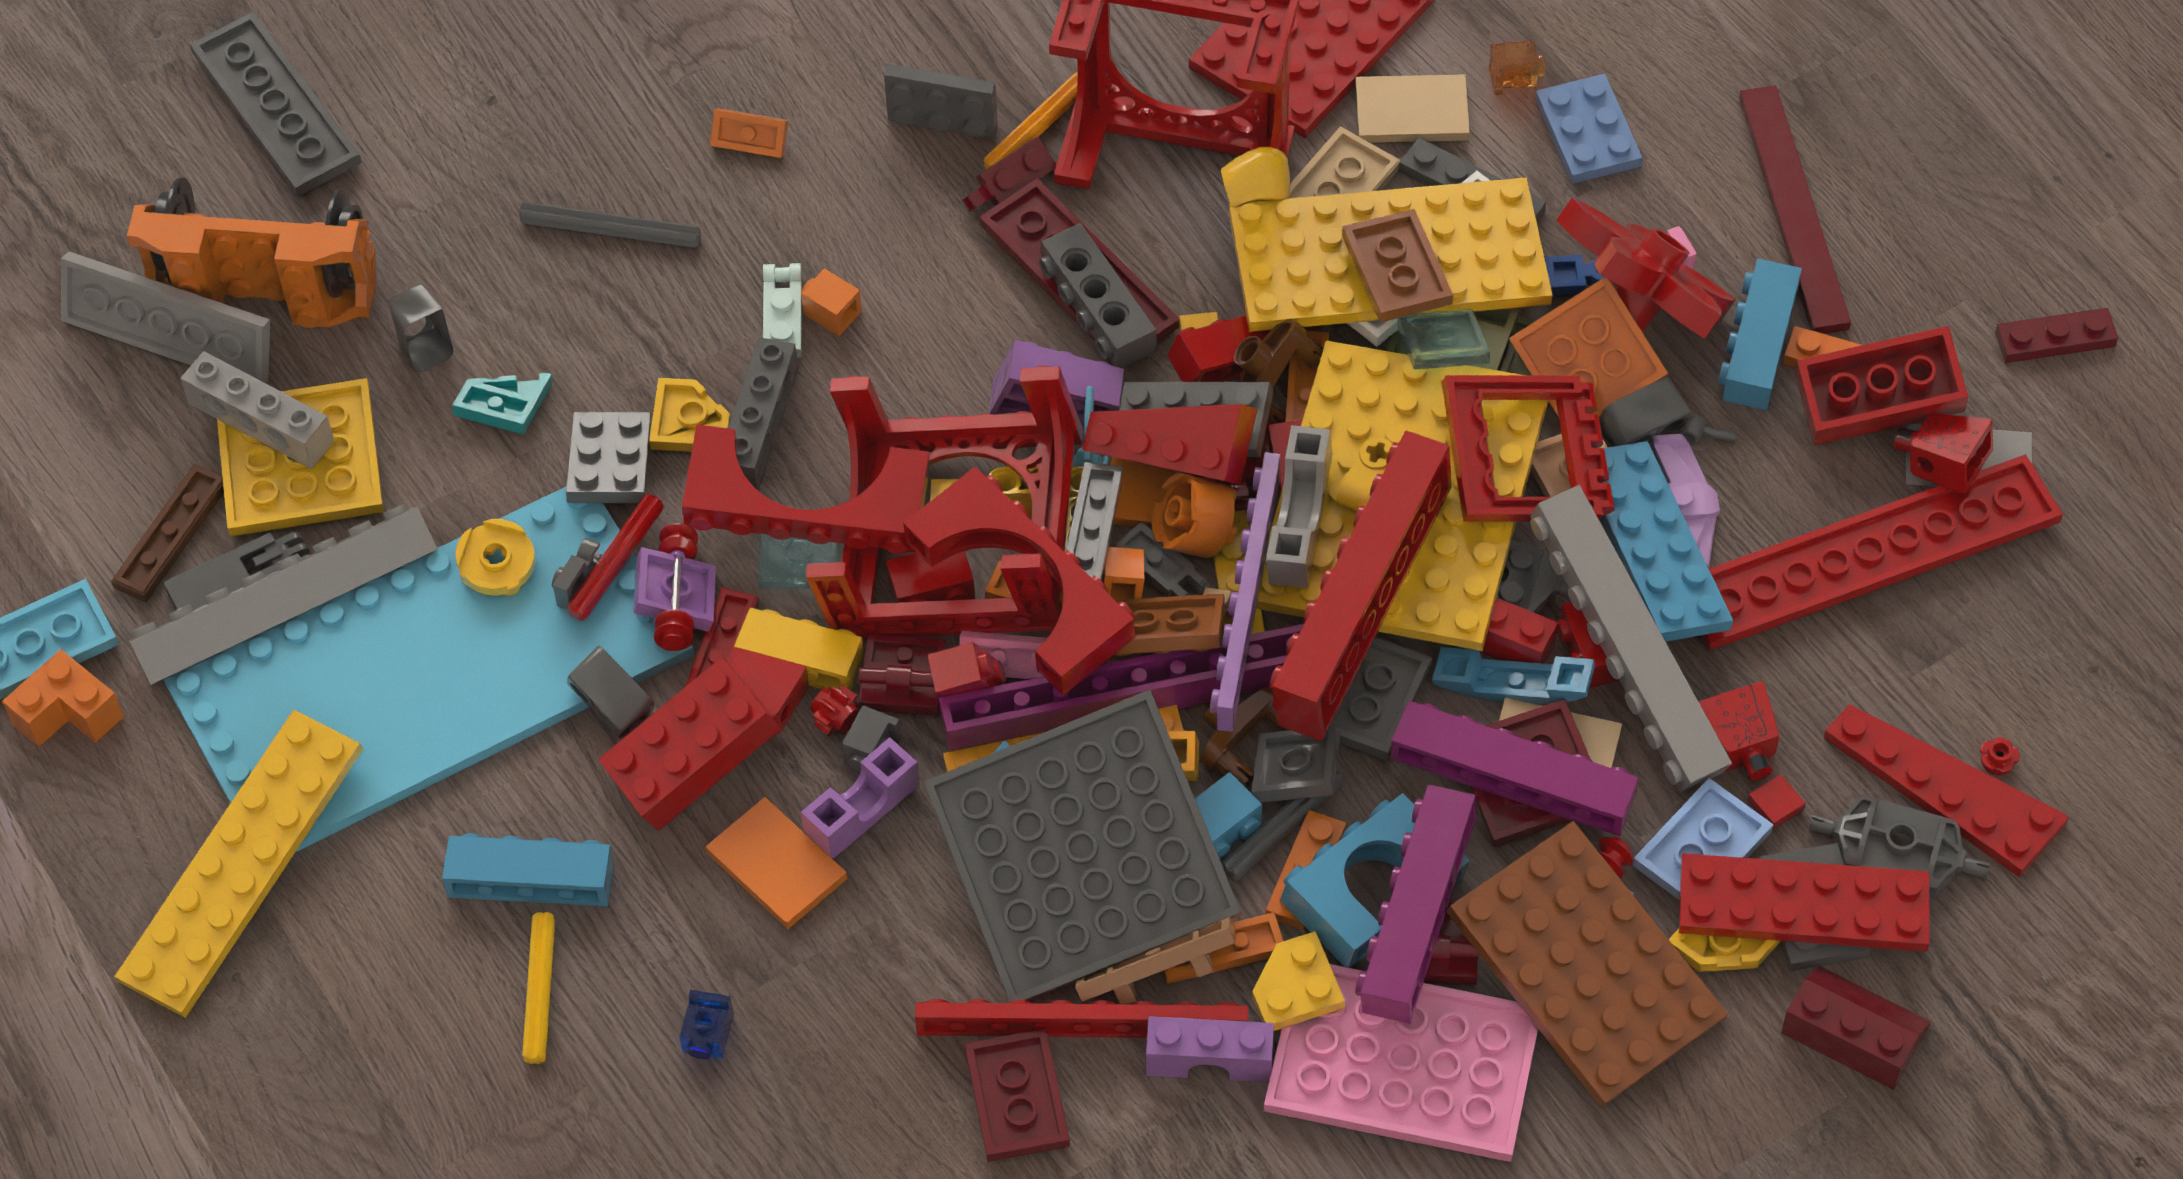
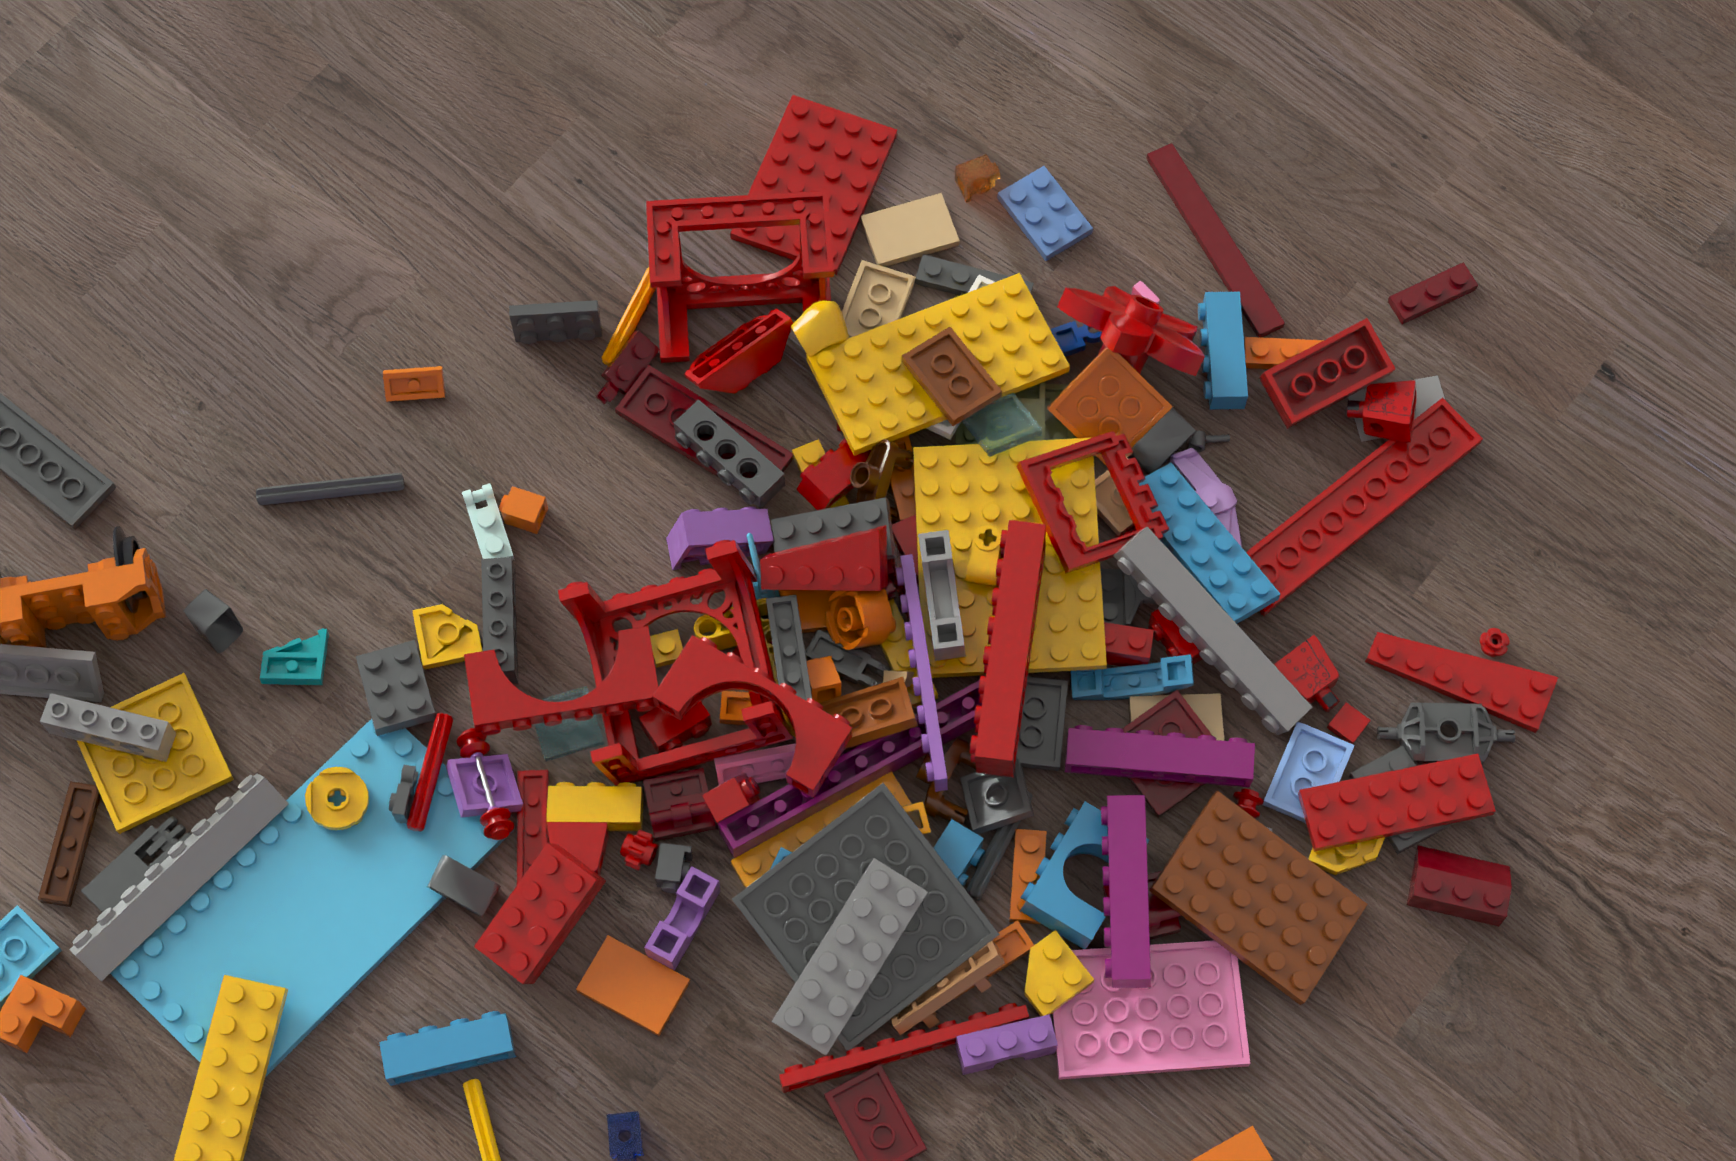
camera: 20 degrees left, 10 degrees up
(1047, 887) = (849, 956): none -> light grey plate
(1156, 196) = (742, 354): none -> red wedge

